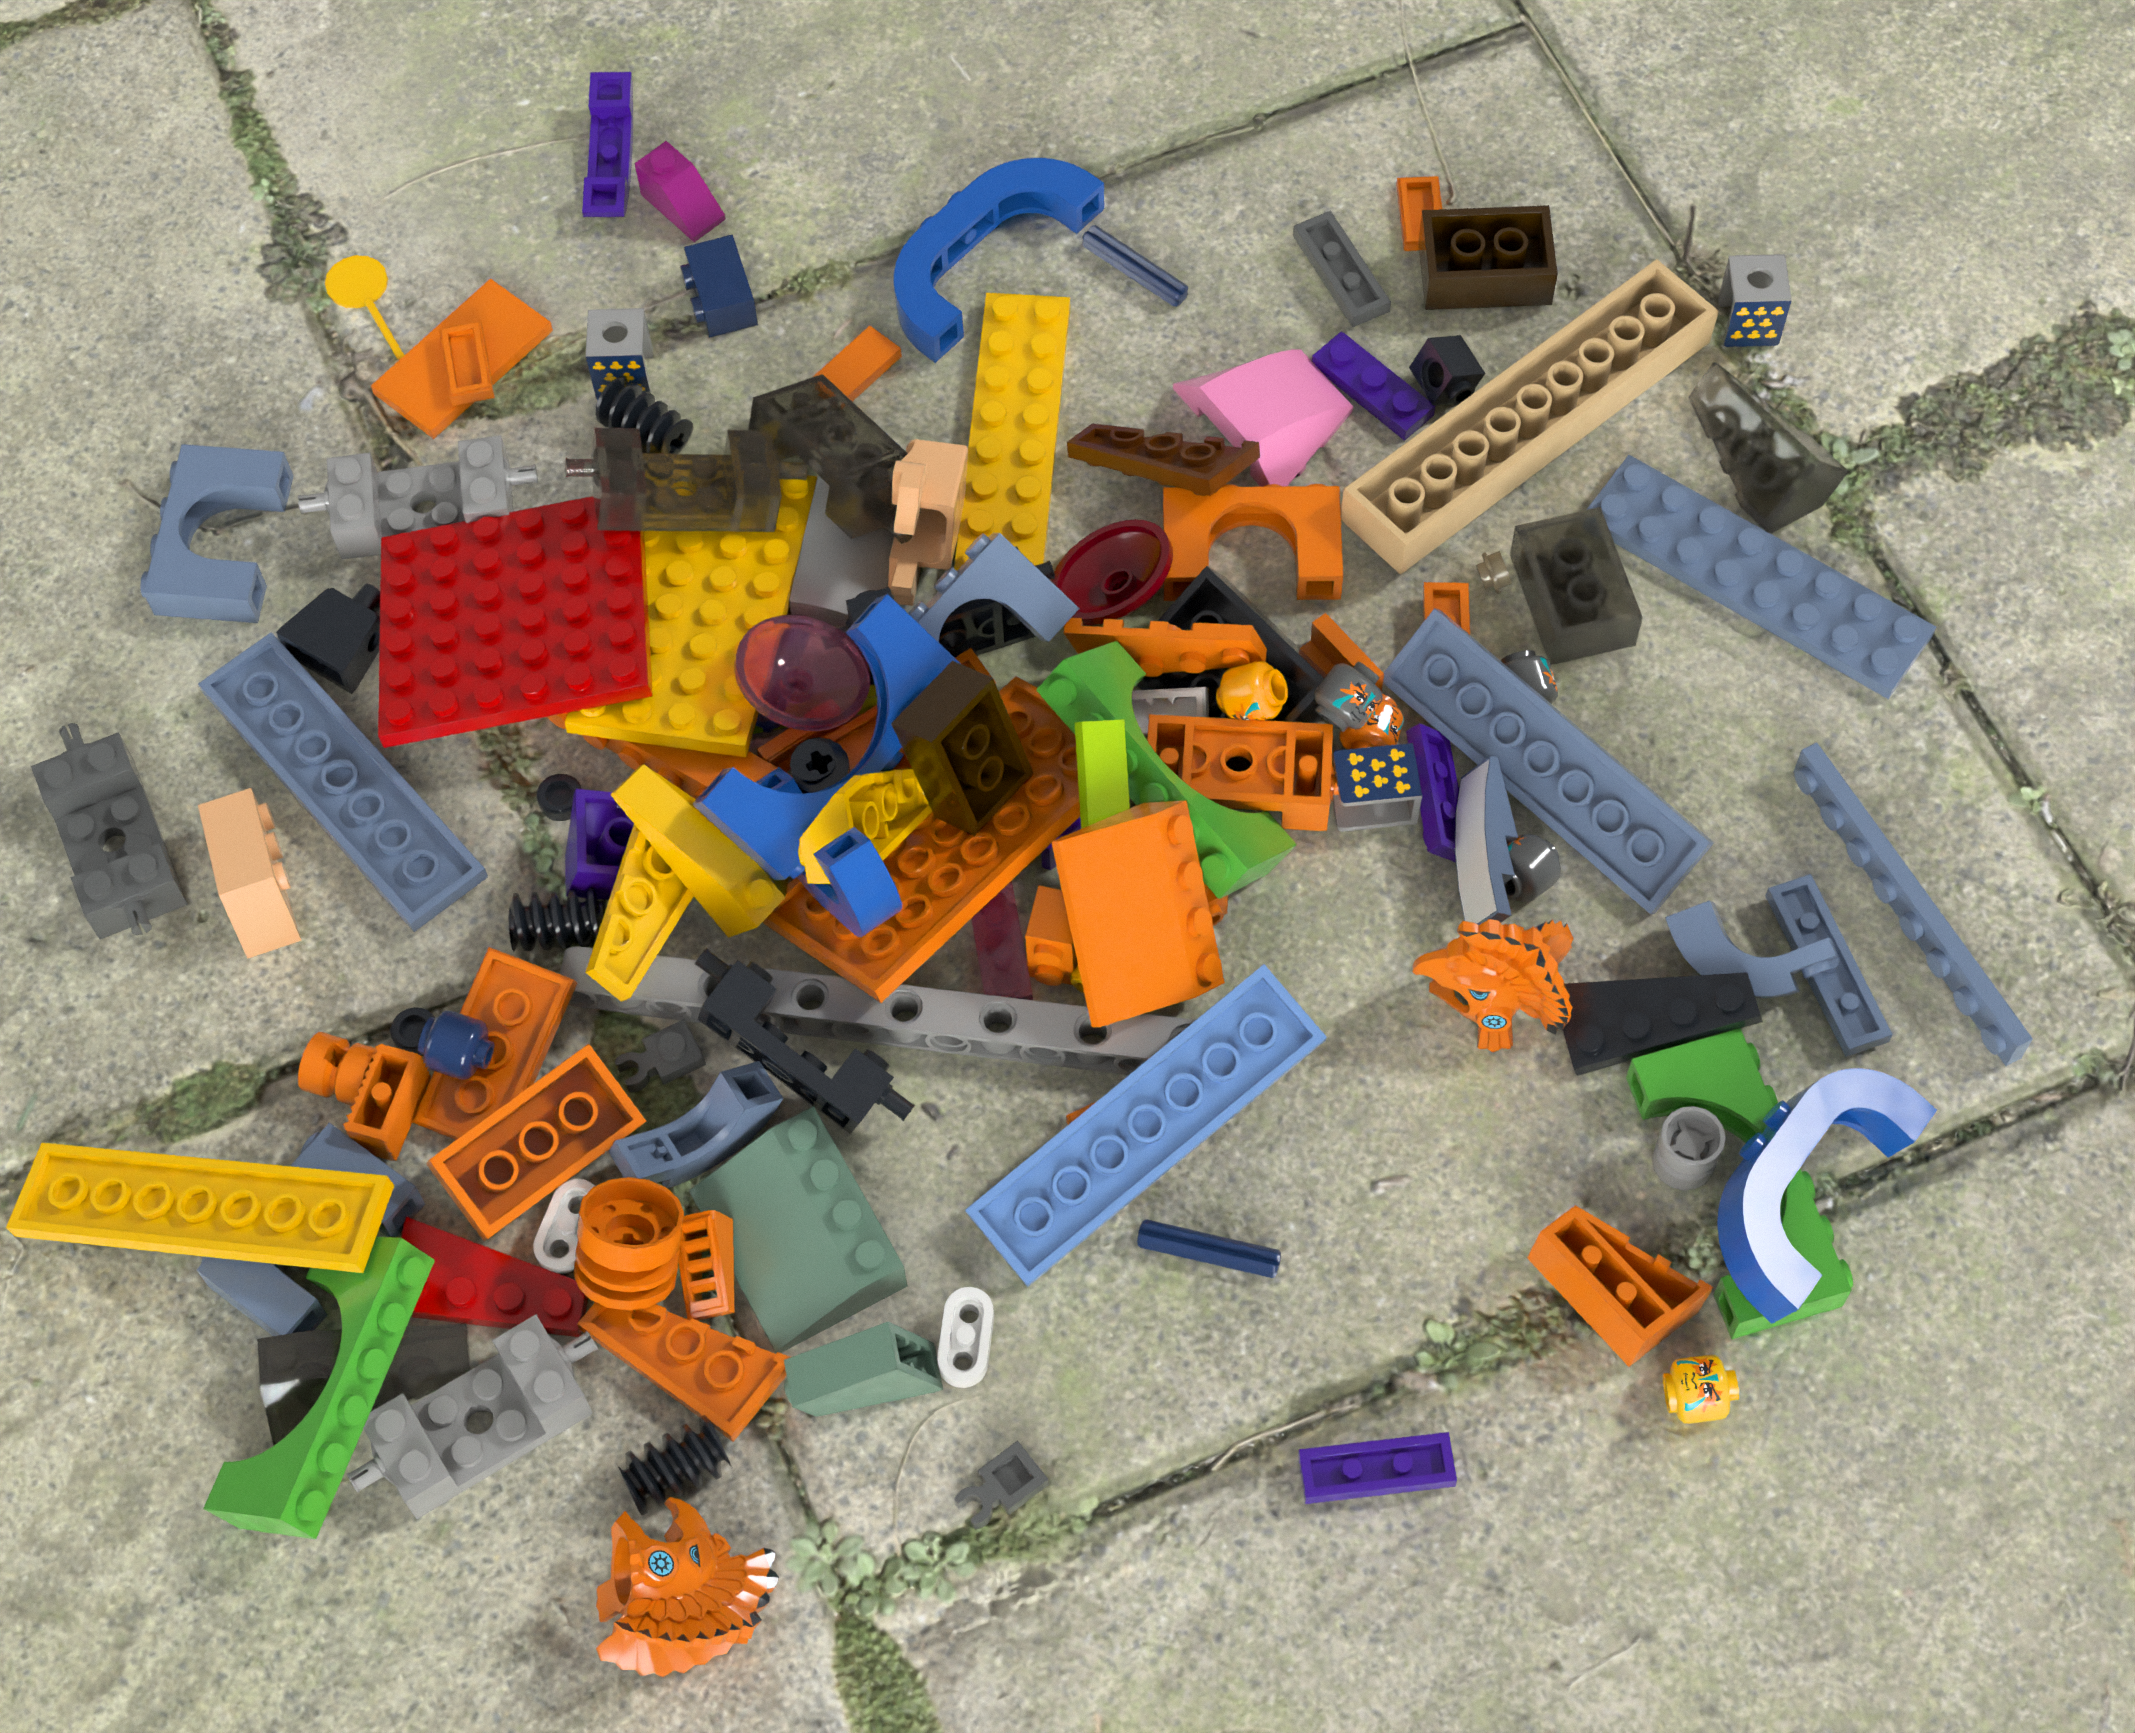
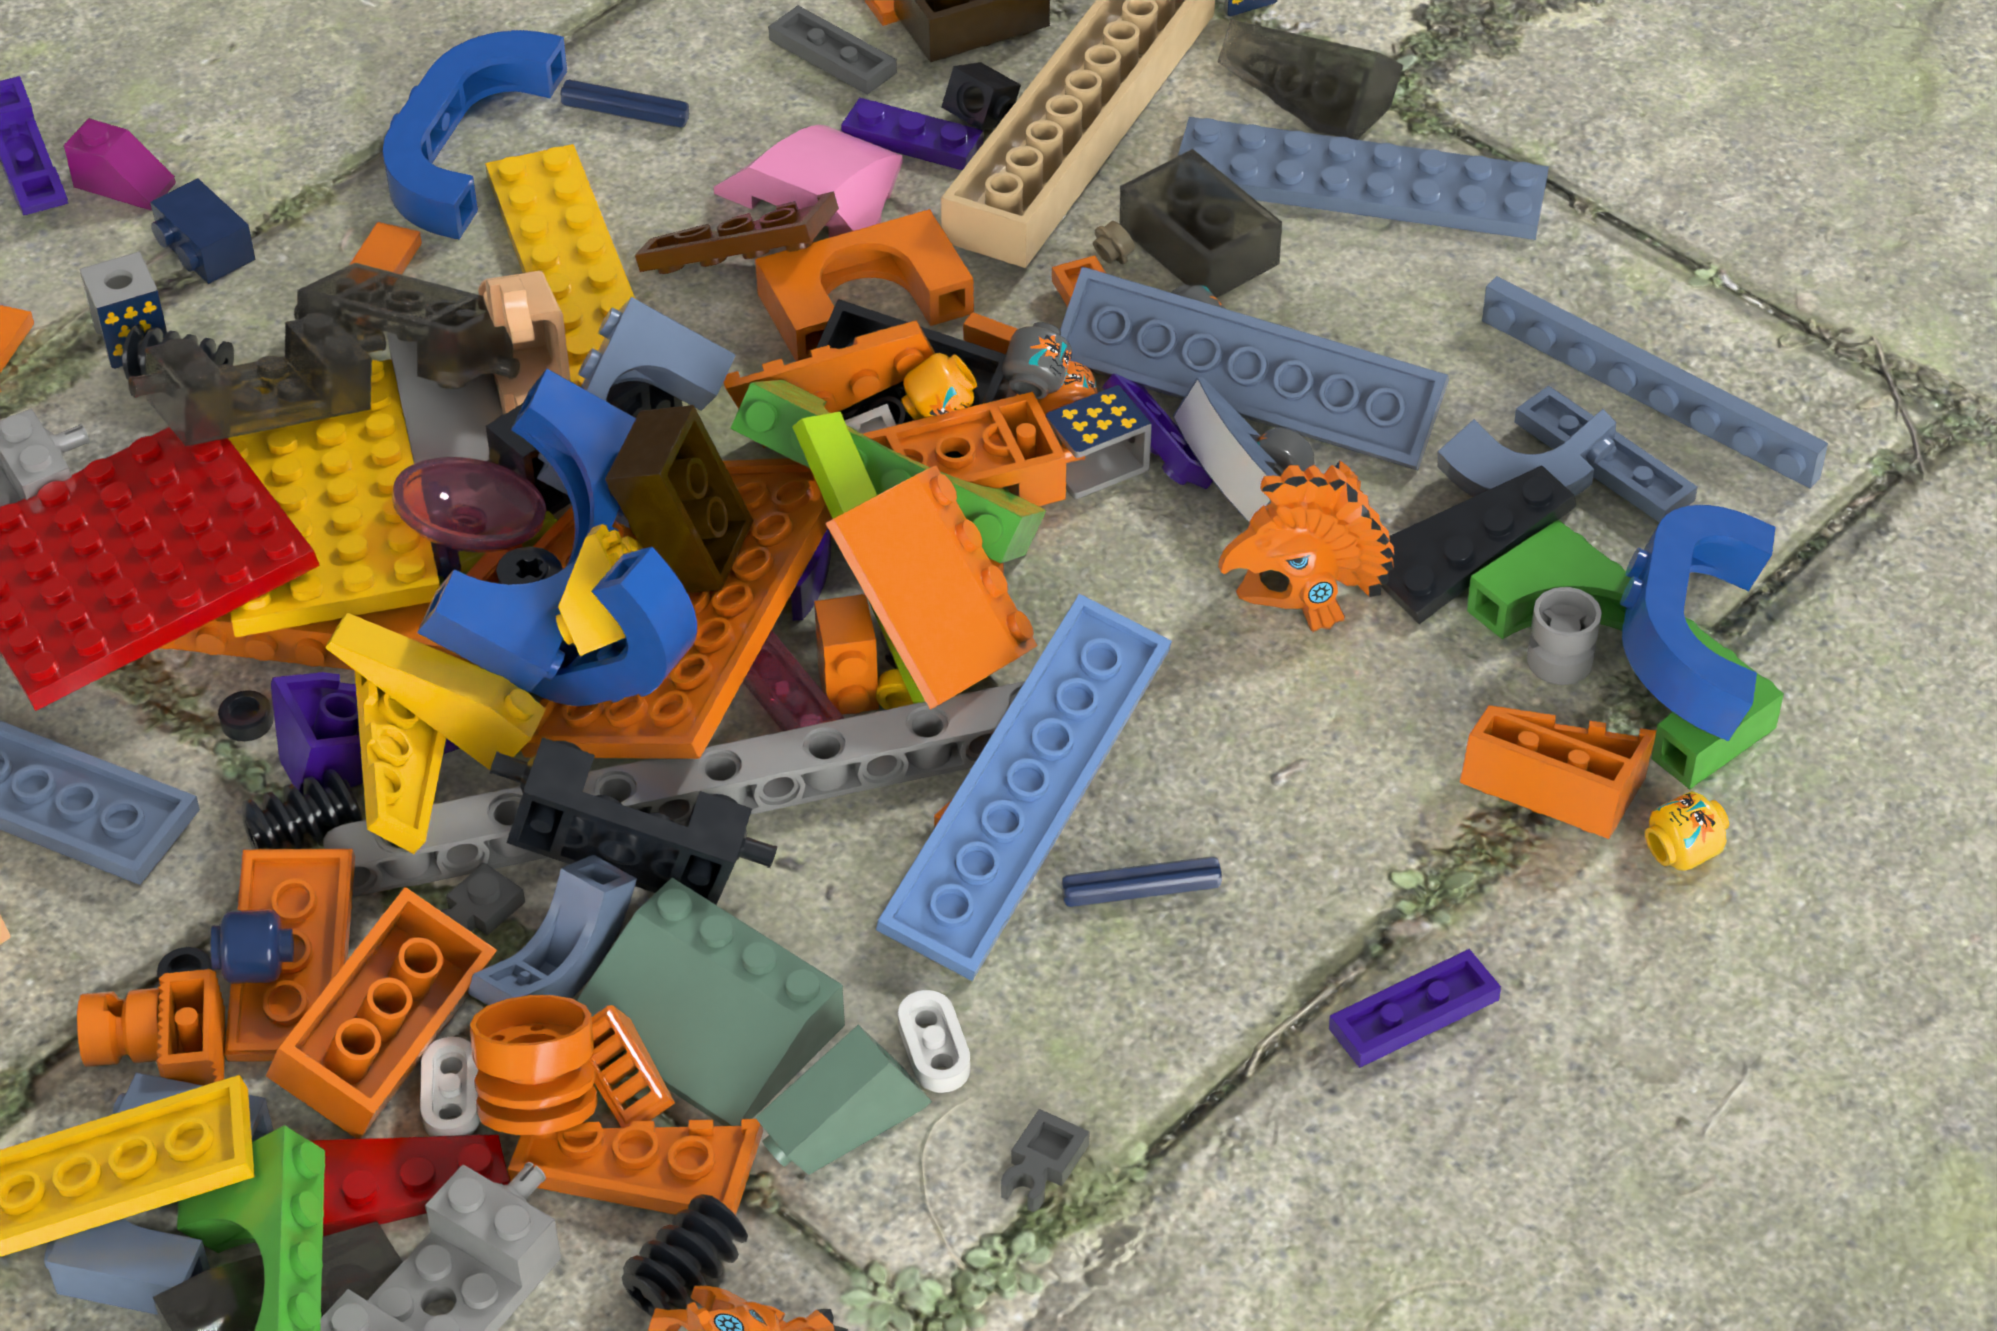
camera: 25 degrees left, 15 degrees down
(1115, 570) = (755, 327): dark red dish -> none

